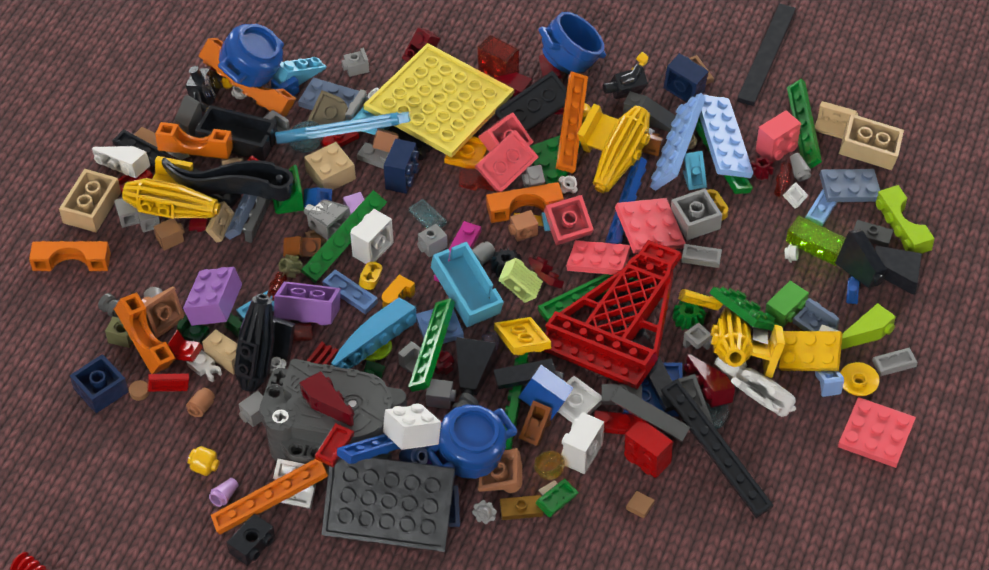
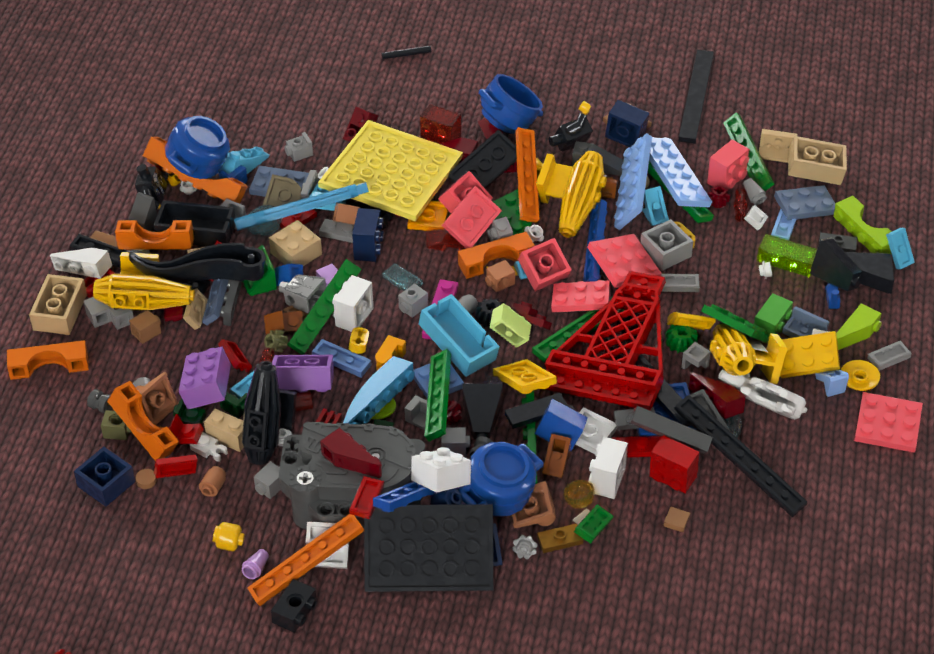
camera: 10 degrees left, 5 degrees down
(248, 275) = (235, 355): none -> red tile
(933, 248) = (900, 248): none -> medium azure plate

